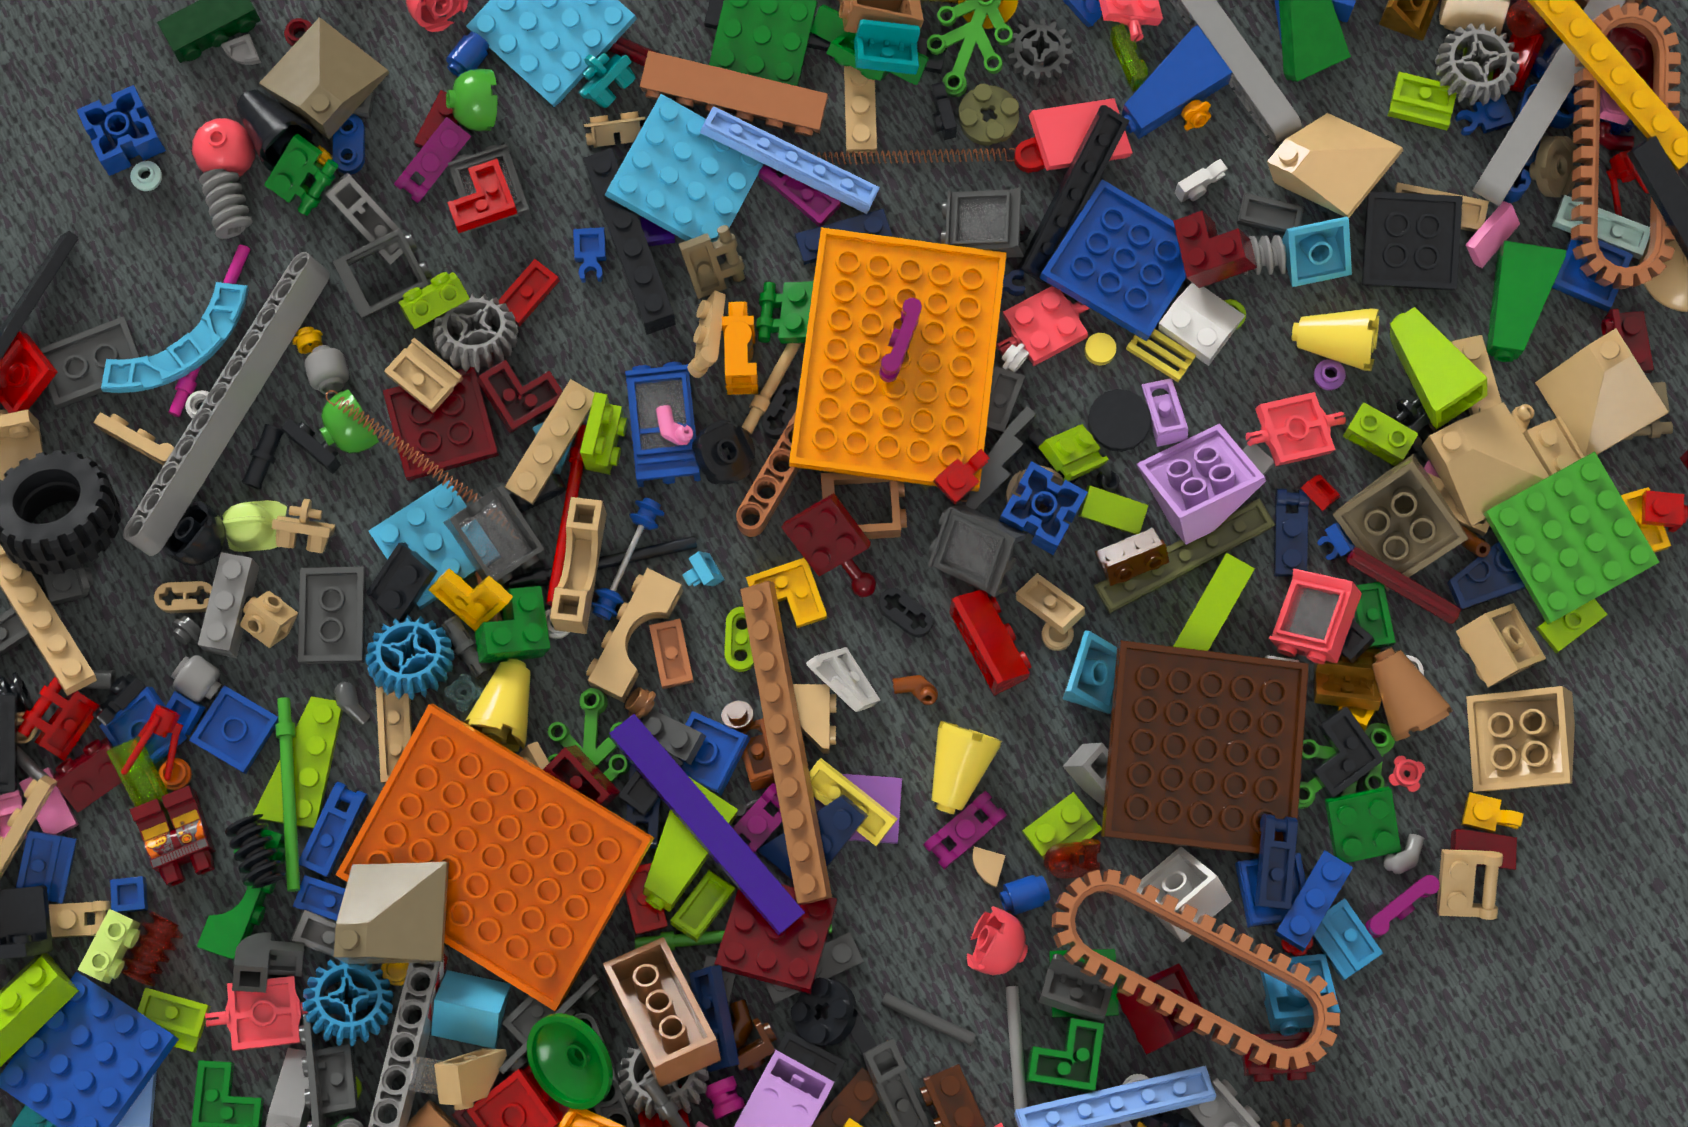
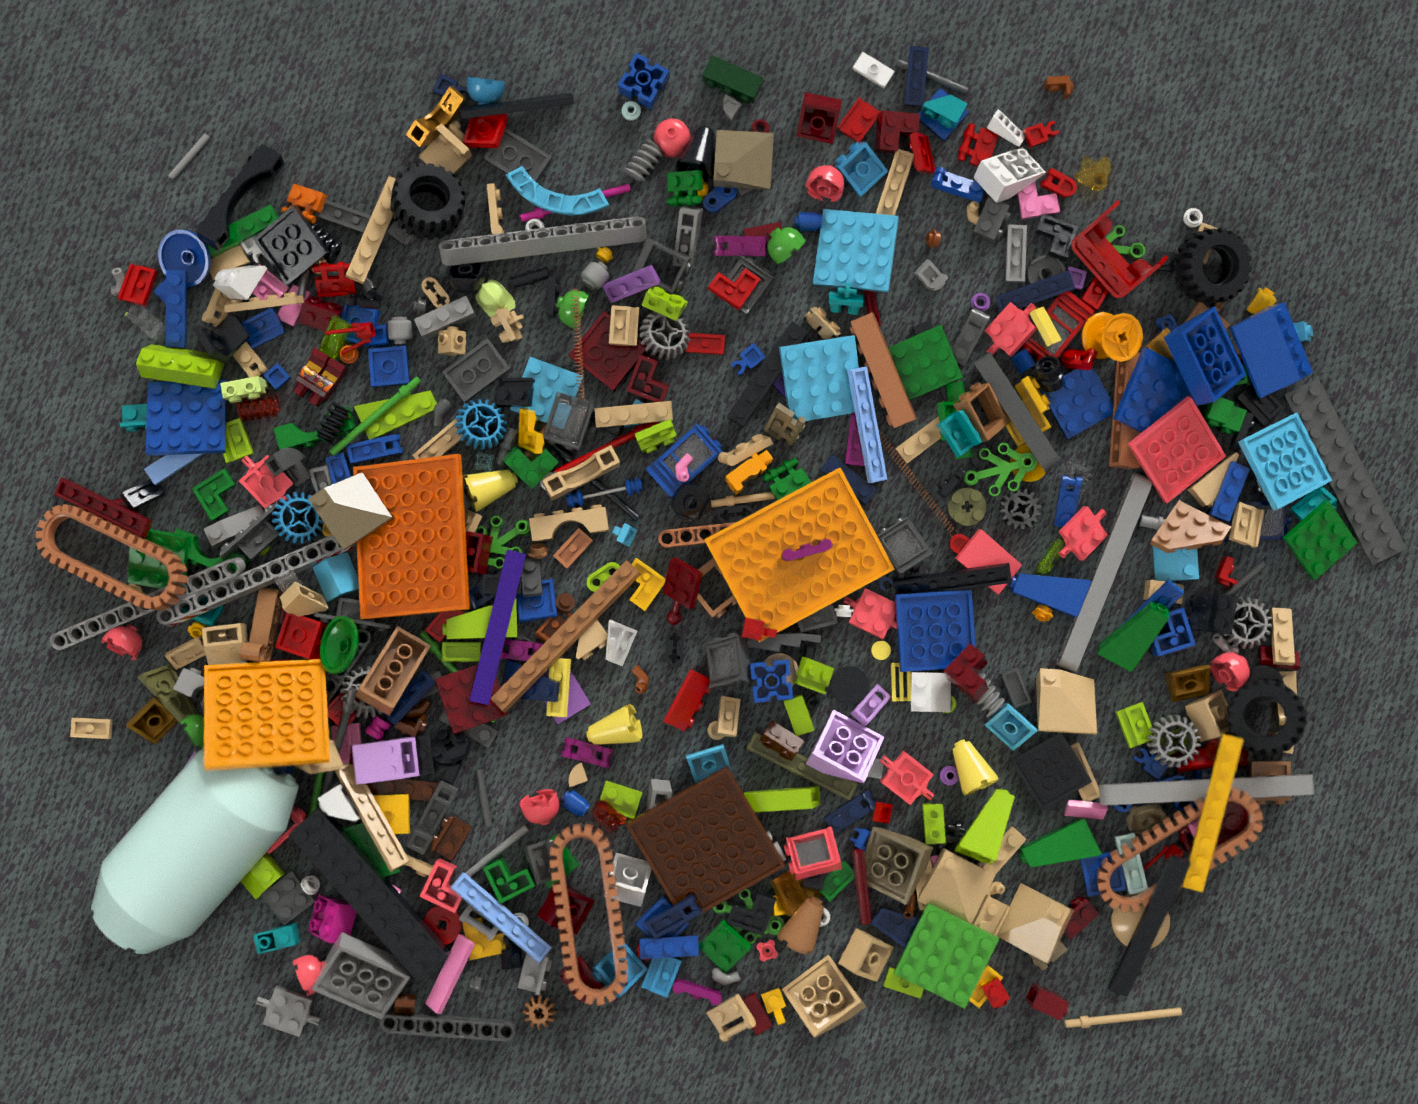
camera: 60 degrees right, 10 degrees up
(375, 326) = (631, 283): none -> medium lavender plate
(1196, 184) = (1003, 639): white plate -> none

